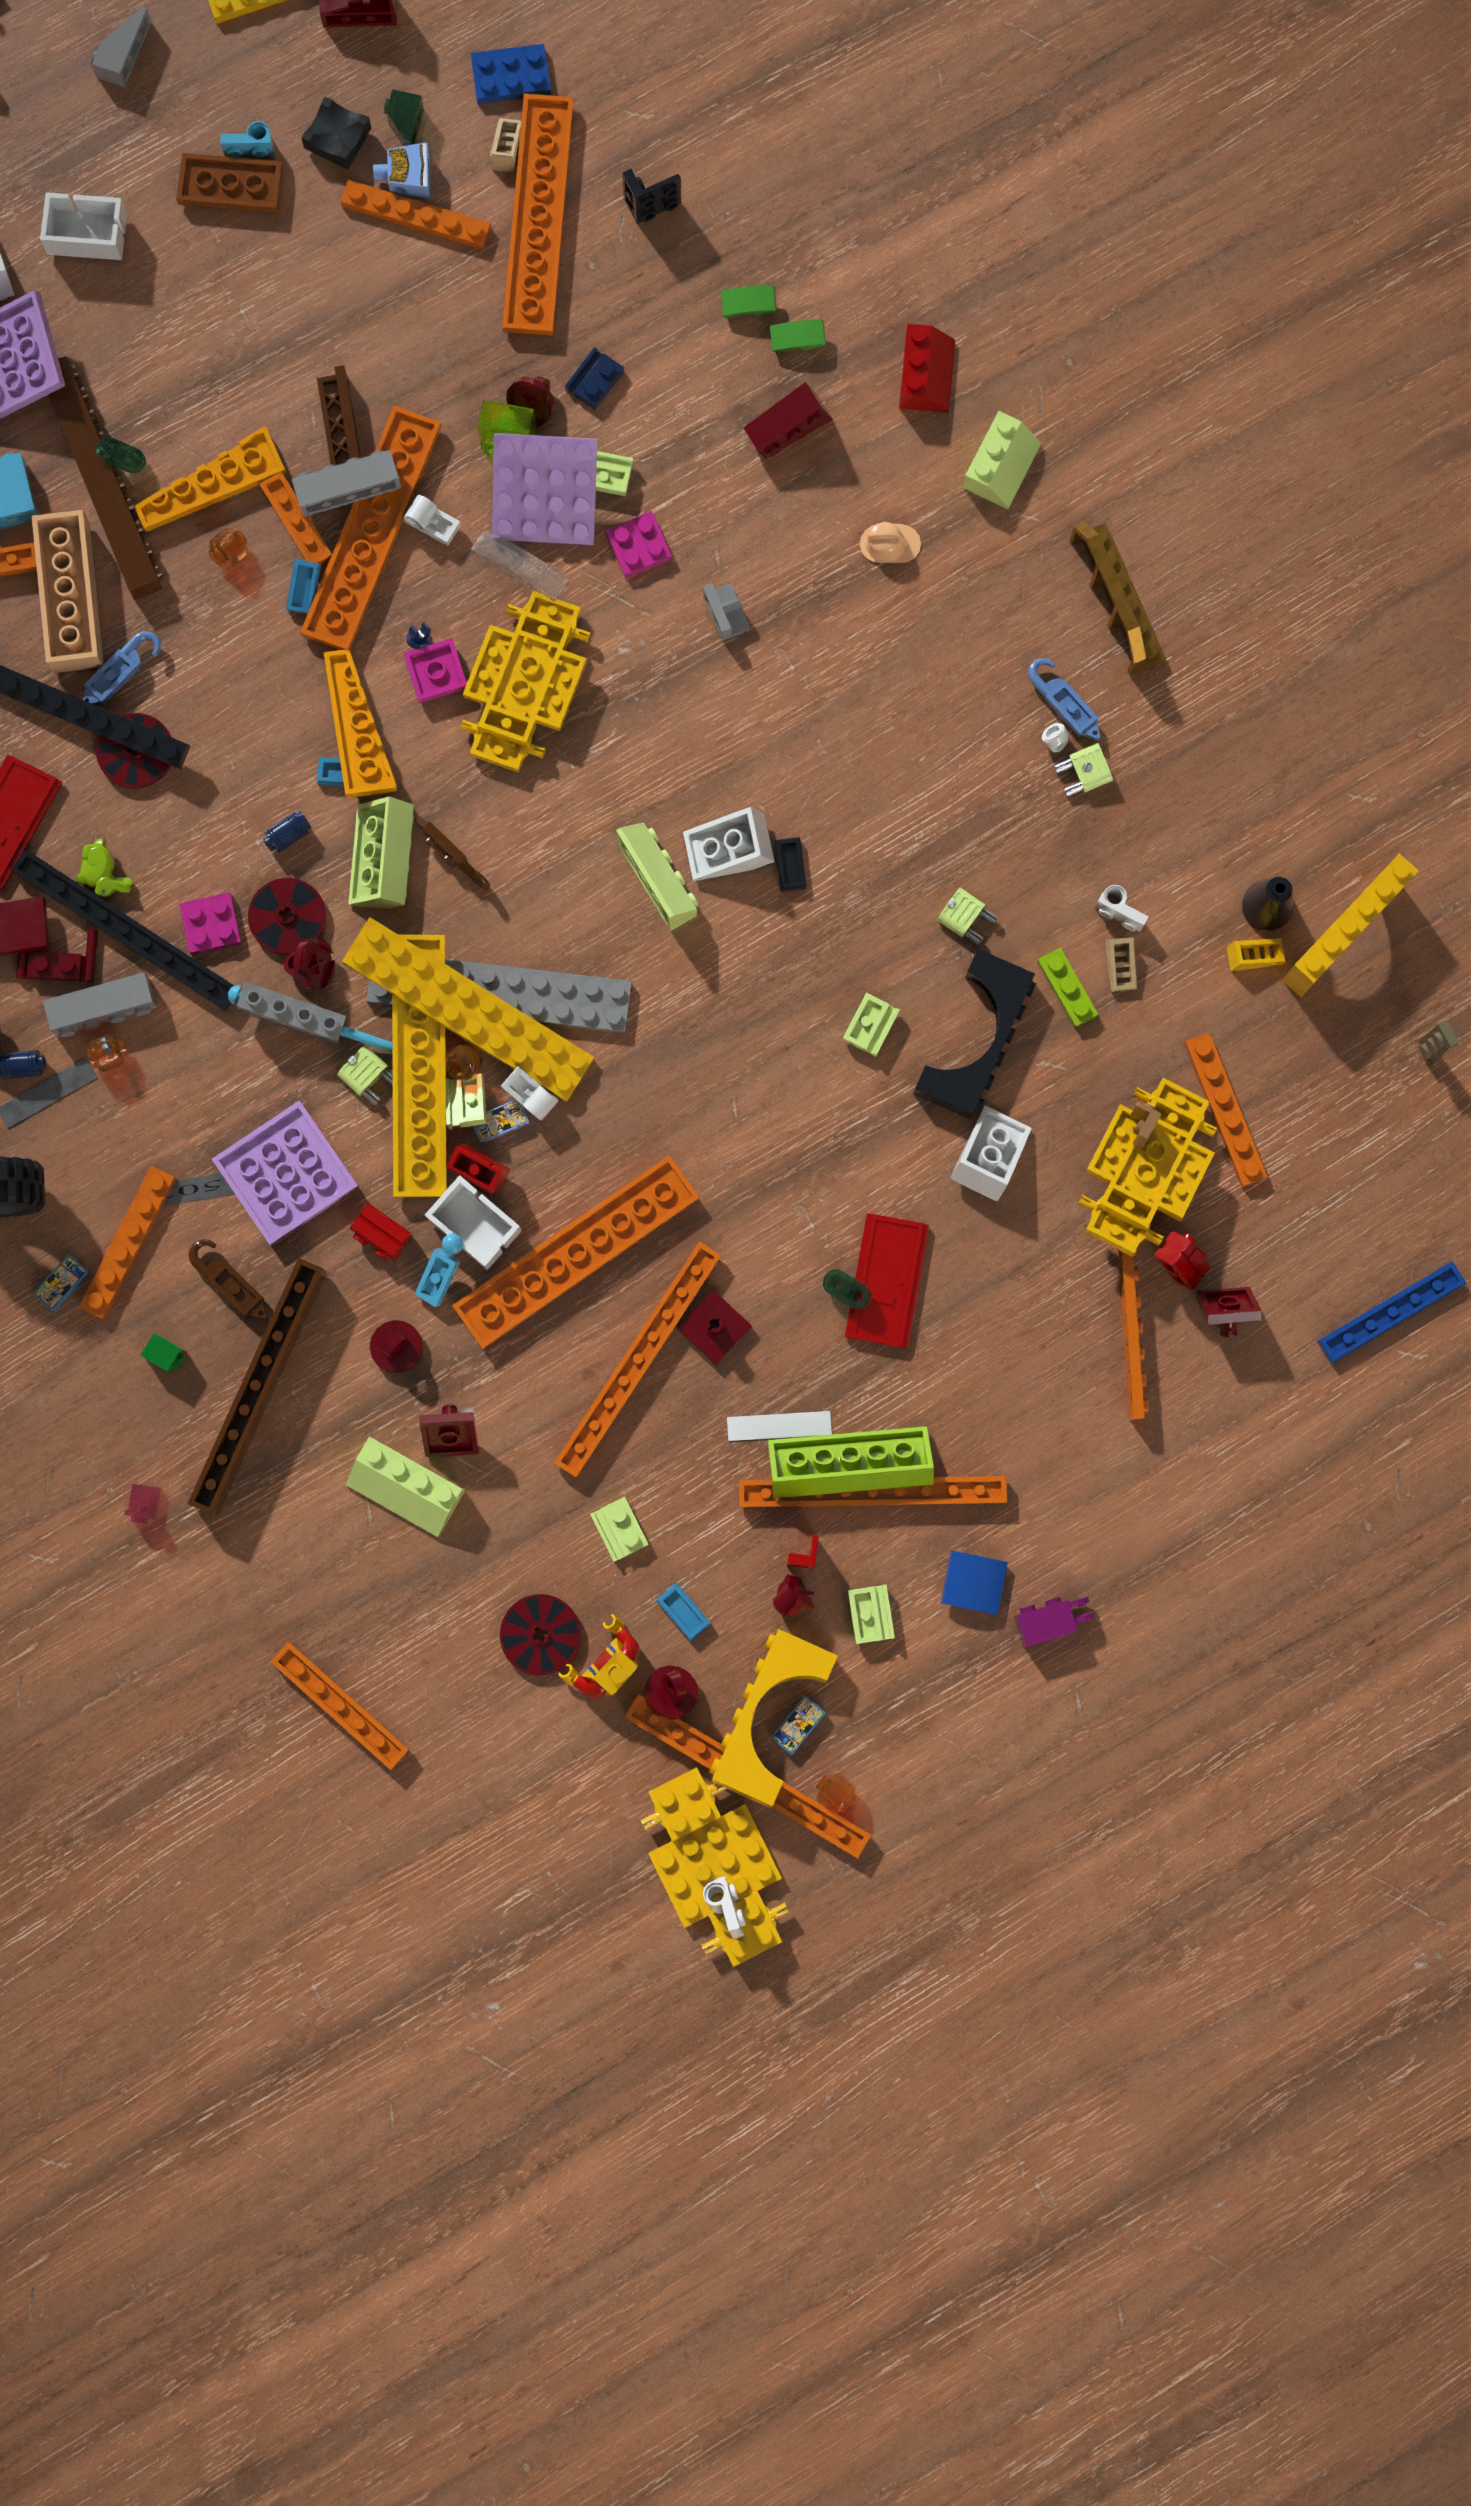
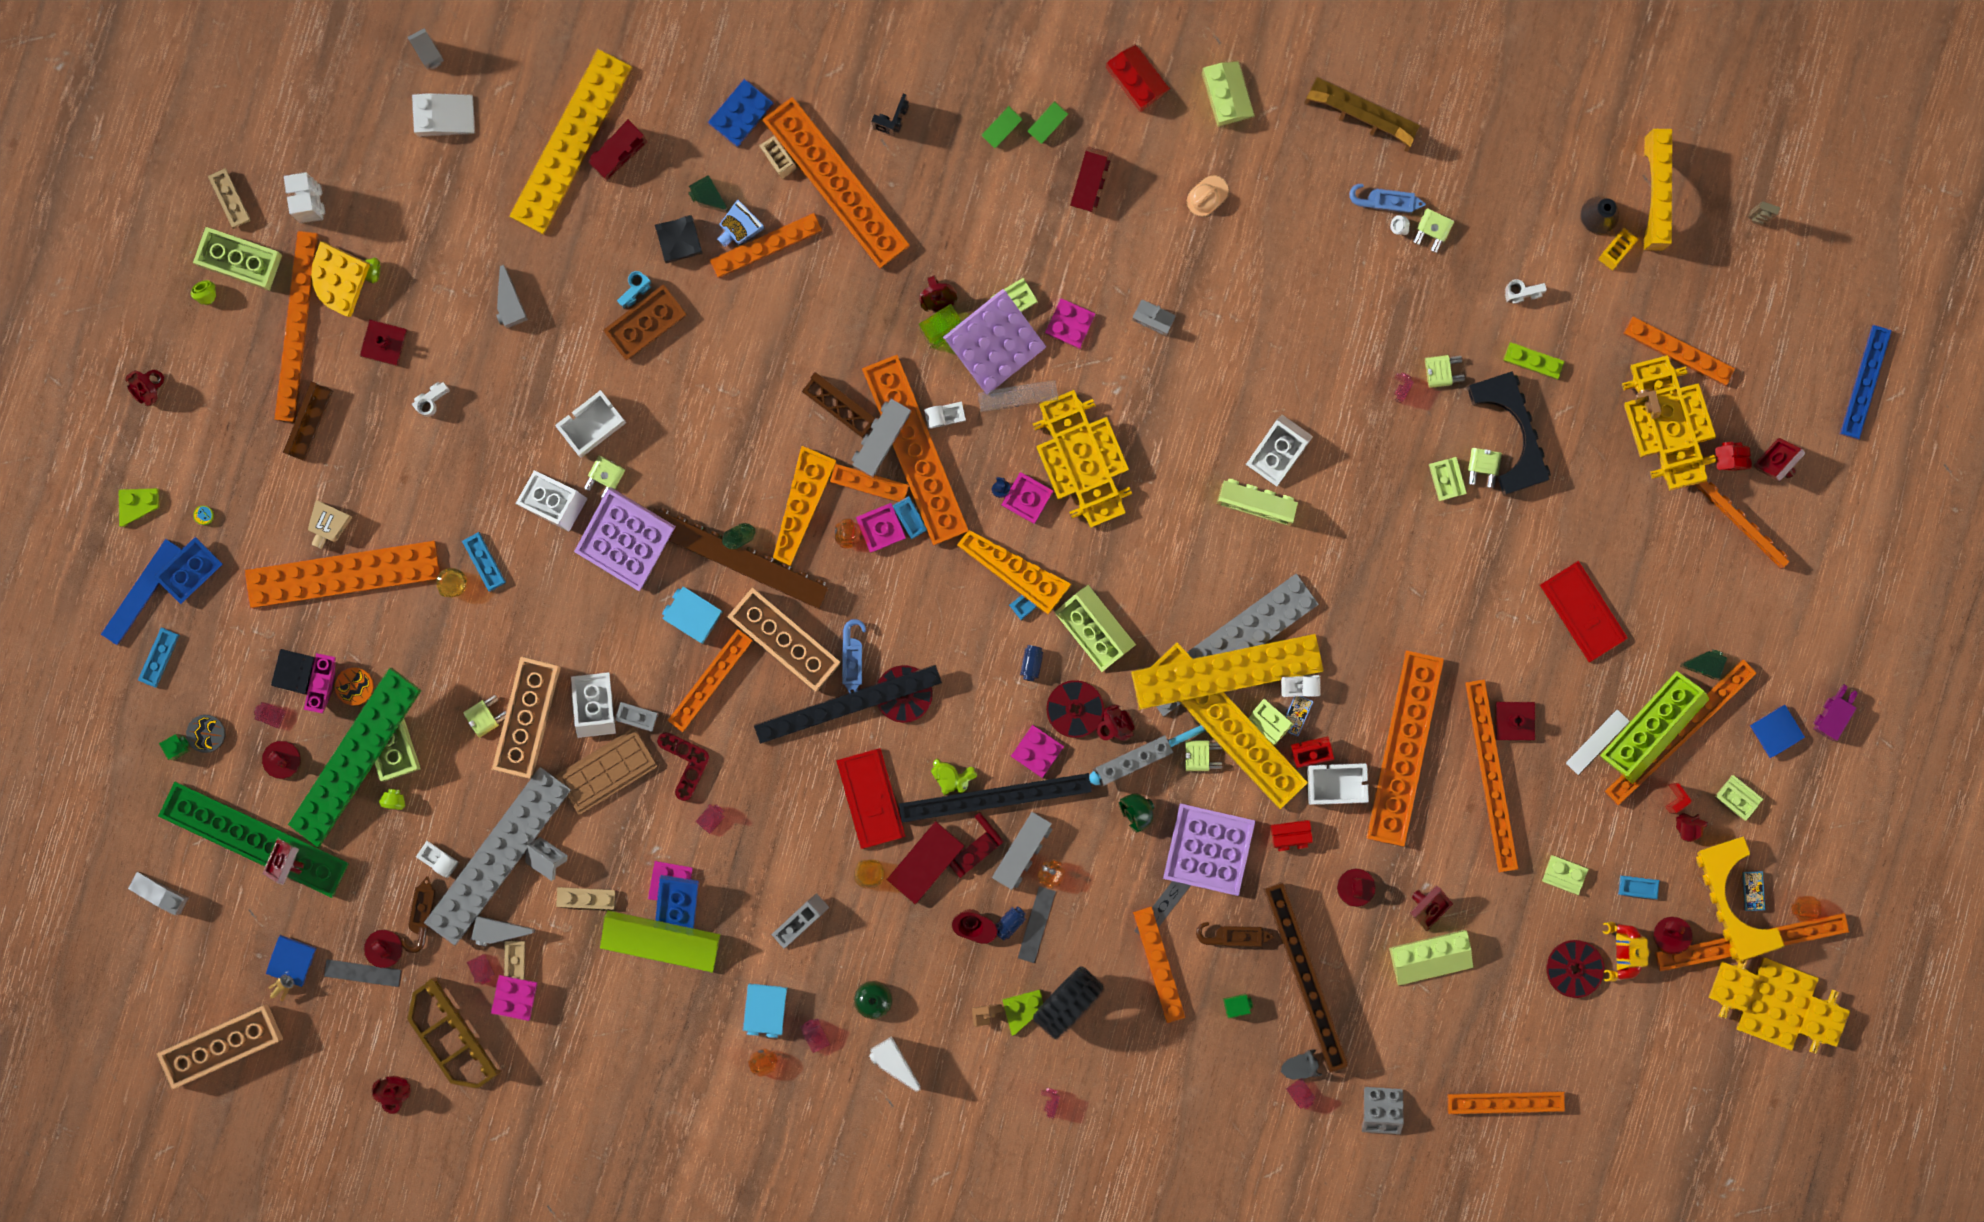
camera: 40 degrees left, 5 degrees up
(55, 288) = (606, 473): none -> yellowish green piece
(61, 1282) = (1144, 1018): tile -> none
(169, 1475) = (1301, 1066): none -> dark grey piece
(207, 1596) = (1383, 1110): none -> light grey bracket
(250, 1067) = (1138, 811): none -> dark green cylinder
(265, 572) = (880, 527): none -> dark pink plate
(440, 1271) = (1344, 825): medium azure plate -> none
(452, 854) = (1133, 592): reddish brown plate -> none
(463, 1061) = (1249, 701): clear orange head -> none
(594, 378) = (956, 249): dark blue plate -> none
(734, 1917) = (1817, 1021): white plate -> none
(790, 864) = (1321, 429): black tile -> none
(848, 1291) = (1569, 636): clear green plate -> none
(908, 898) = (1402, 391): none -> clear pink bracket
(923, 1042) = (1486, 463): none -> yellowish green piece
(963, 1446) = (1707, 664): none -> clear green slope
(991, 1153) = (1577, 491): white slope -> none
(1130, 963) = (1543, 305): tan slope -> none

